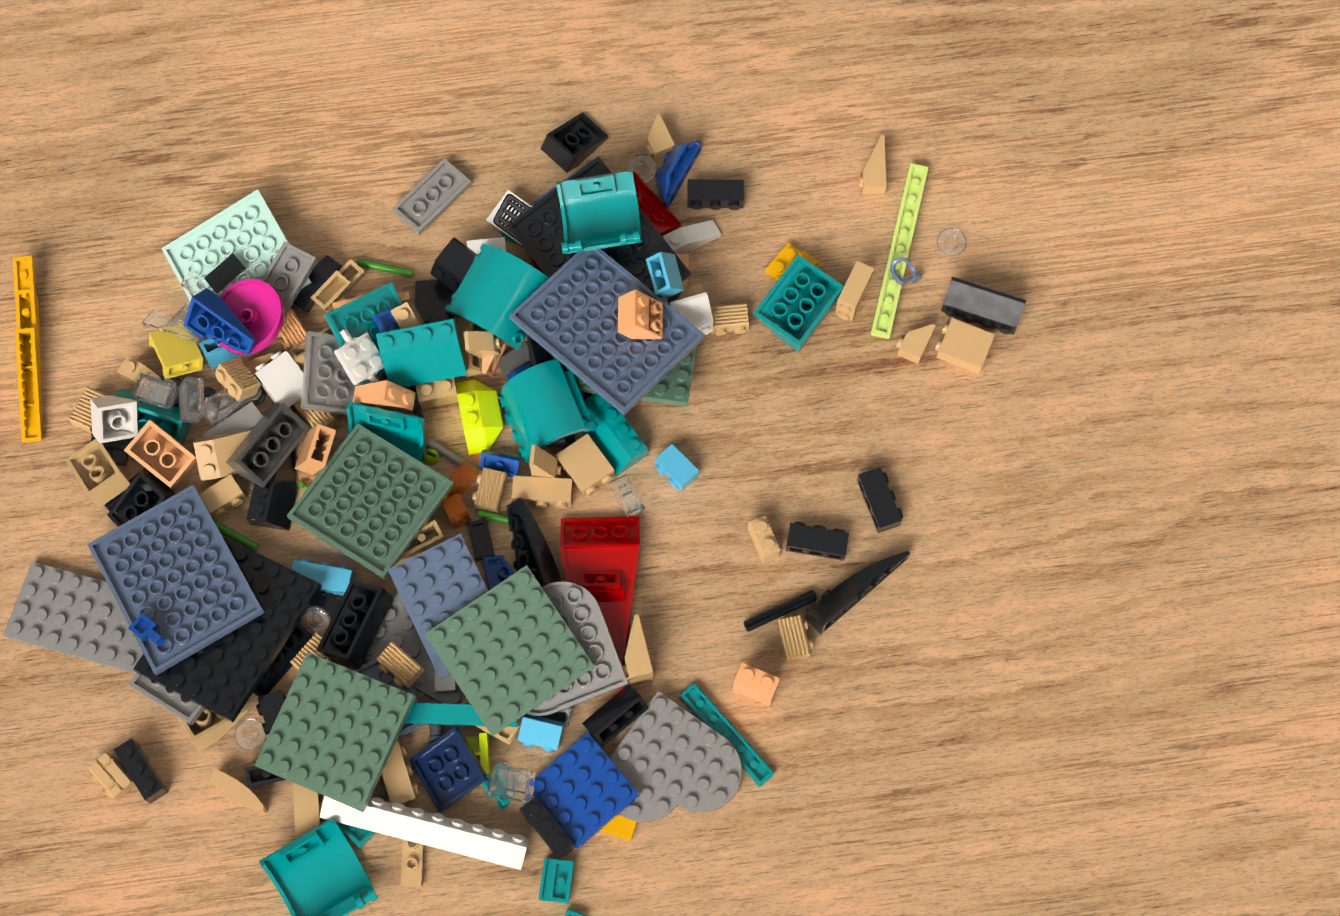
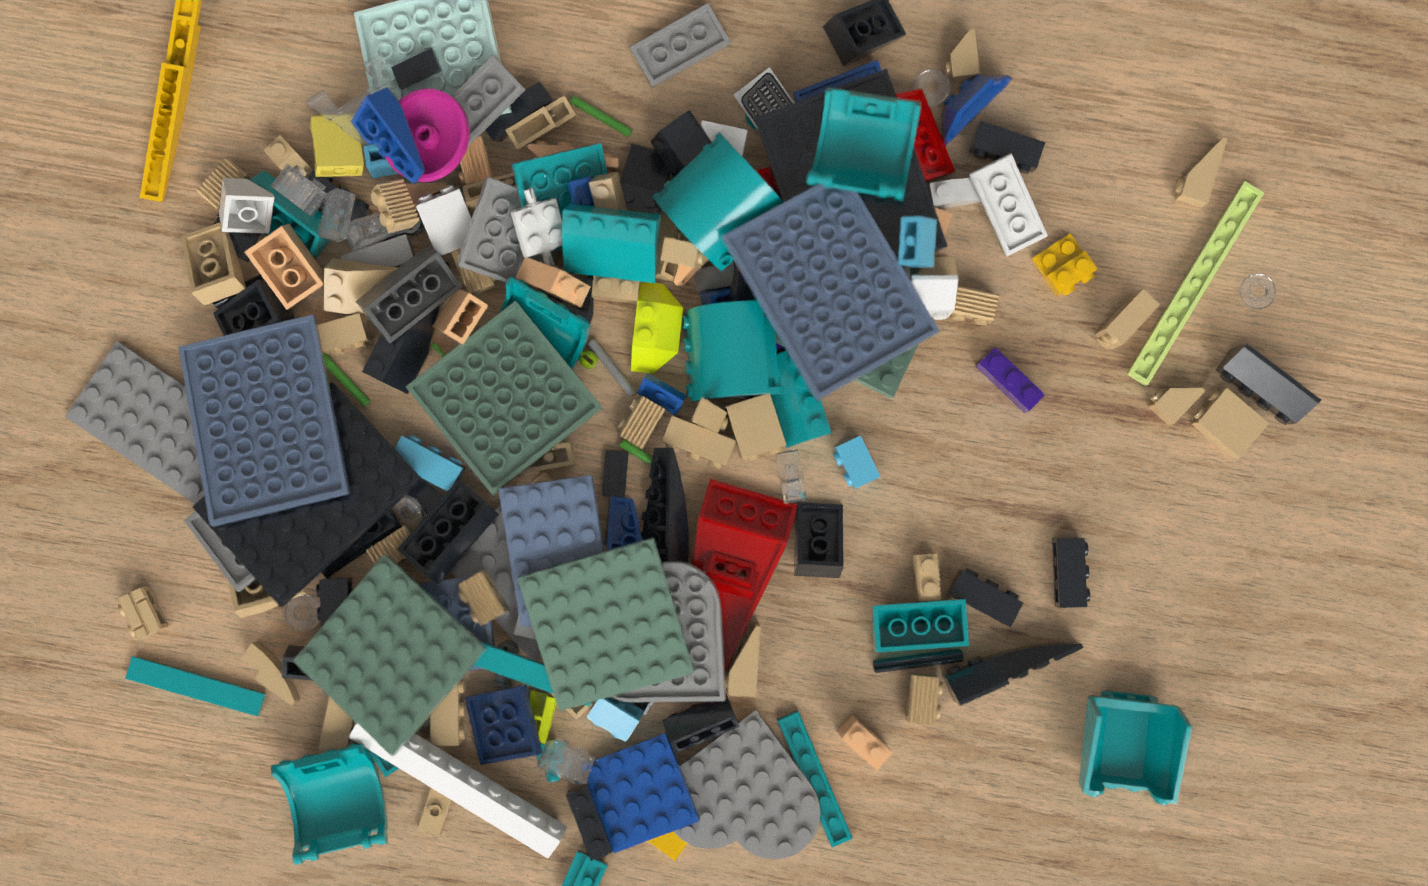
camera: 15 degrees right, 15 degrees up
(140, 770) = (174, 617): black brick -> none
(145, 628) = (212, 473): blue plate -> none
(174, 825) = (195, 686): none -> teal tile
(456, 510) = (597, 435): dark orange brick -> none
(462, 478) = (614, 398): clear orange plate -> none
(640, 316) = (872, 288): light nougat slope -> none
(666, 539) = (819, 540): none -> black slope
(731, 235) = (1008, 204): none -> white tile
(770, 578) = (919, 625): none -> teal slope
(778, 366) = (1010, 380): none -> dark purple brick
(798, 302) = (1059, 313): teal slope -> none
(915, 276) = (1180, 317): sand blue piece -> none
(978, 619) = (1133, 745): none -> teal windscreen

